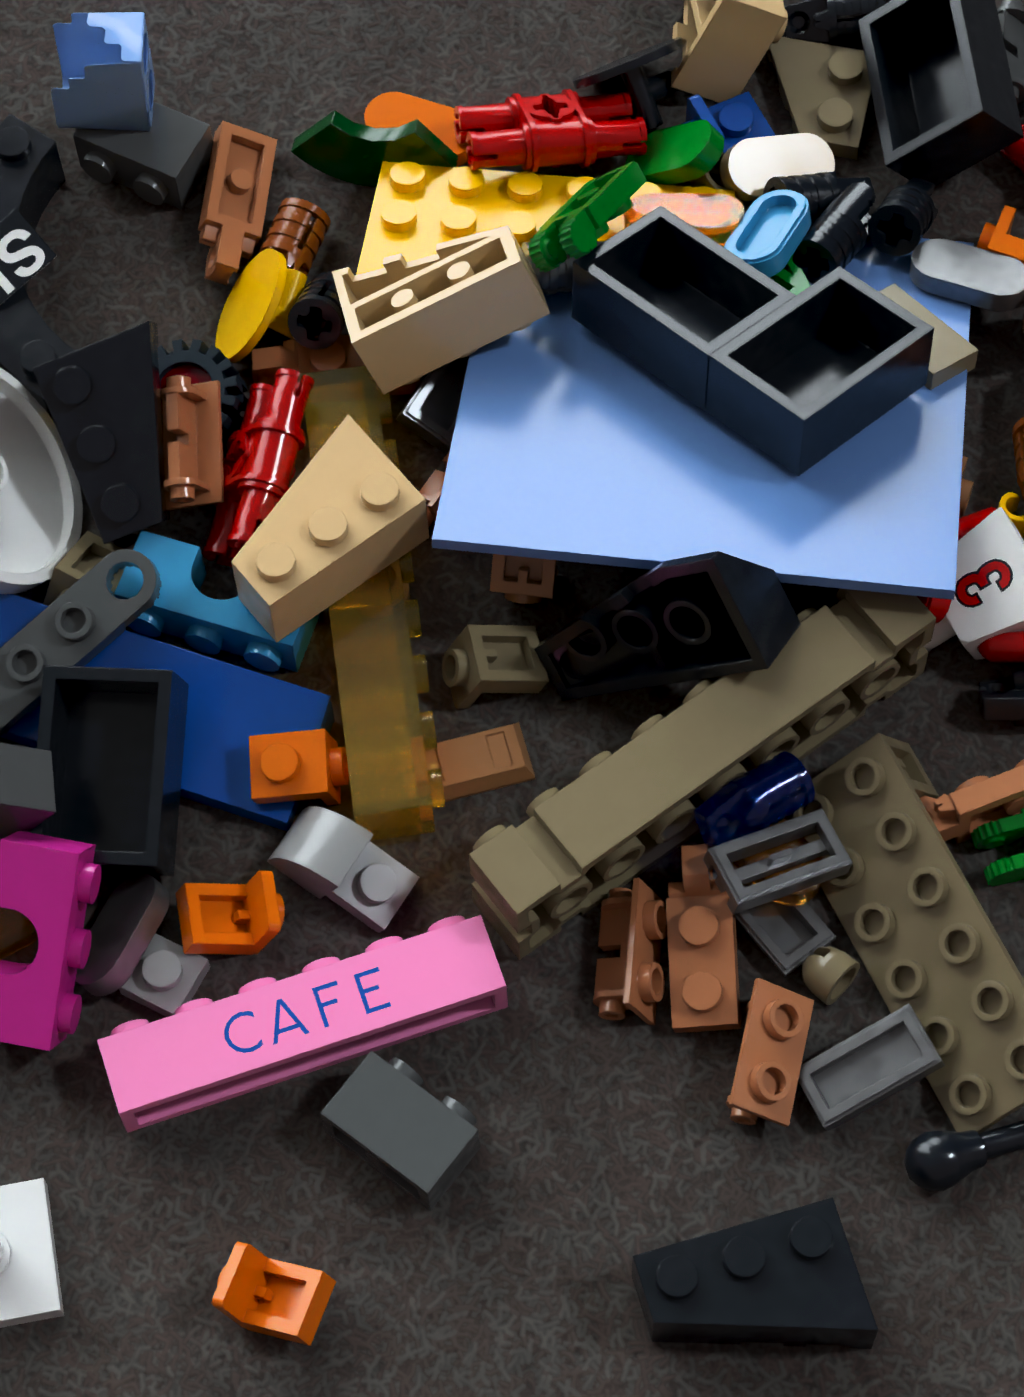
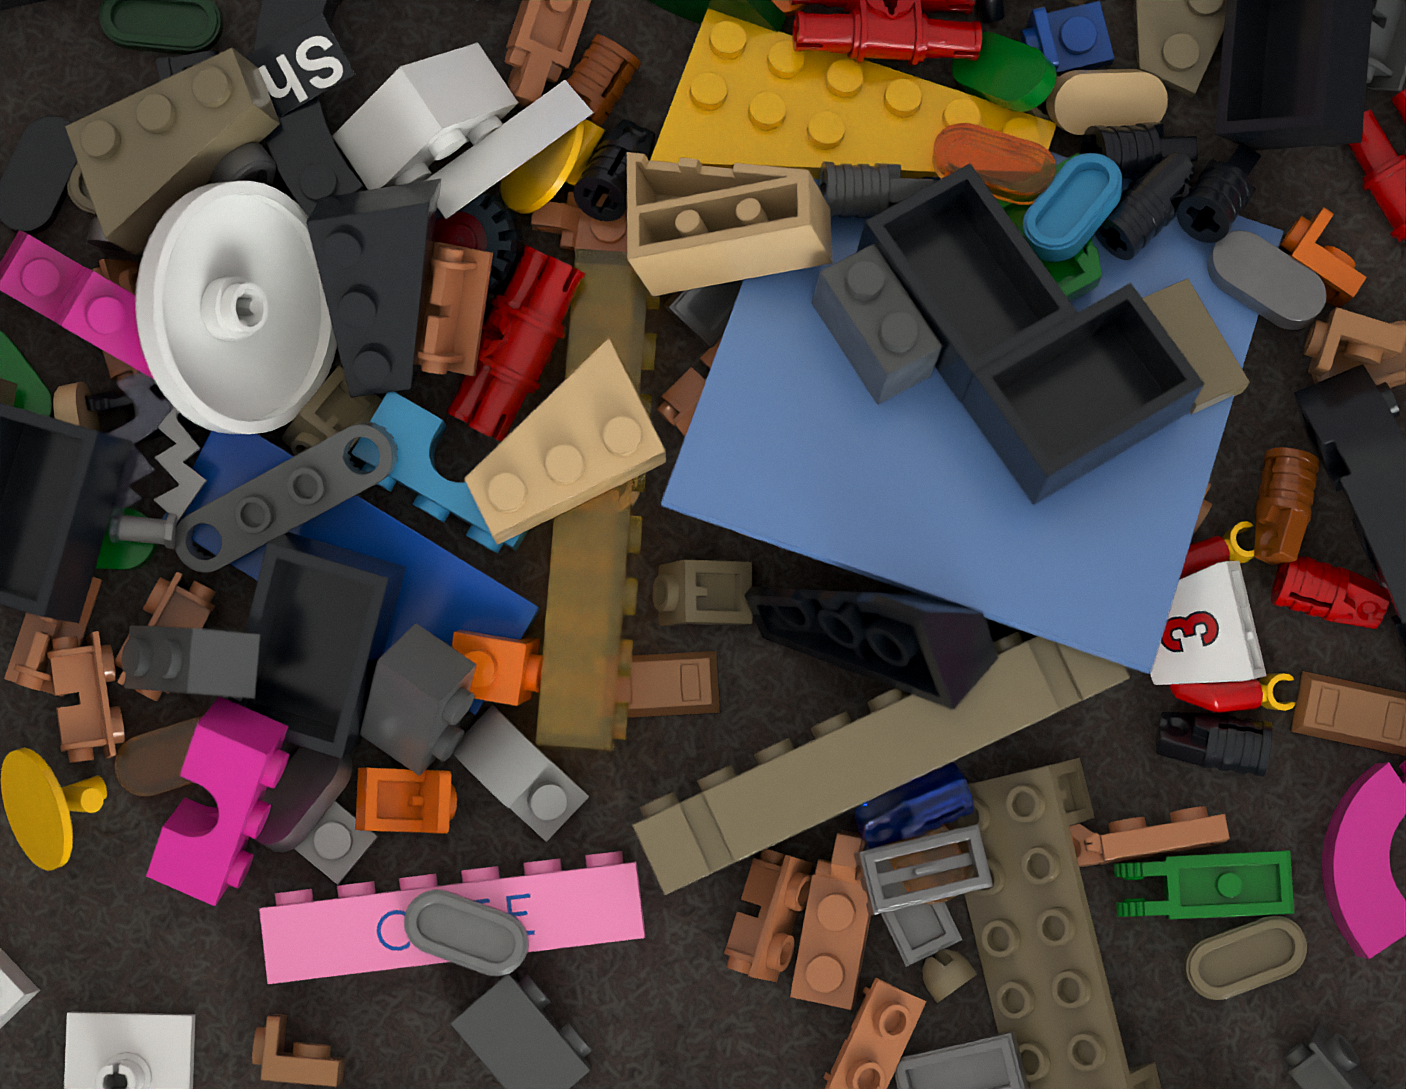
camera: 10 degrees right, 20 degrees up
(131, 280) = (424, 116): none -> white brick
(172, 1201) = (306, 1065): none -> medium nougat bracket
(218, 294) = (509, 147): none -> white sticker
(225, 801) = (419, 700): none -> dark grey brick
(319, 1014) = (466, 932): none -> flat silver tile
(585, 217) = (891, 158): green hinge -> none
(605, 356) = (876, 324): none -> dark grey brick

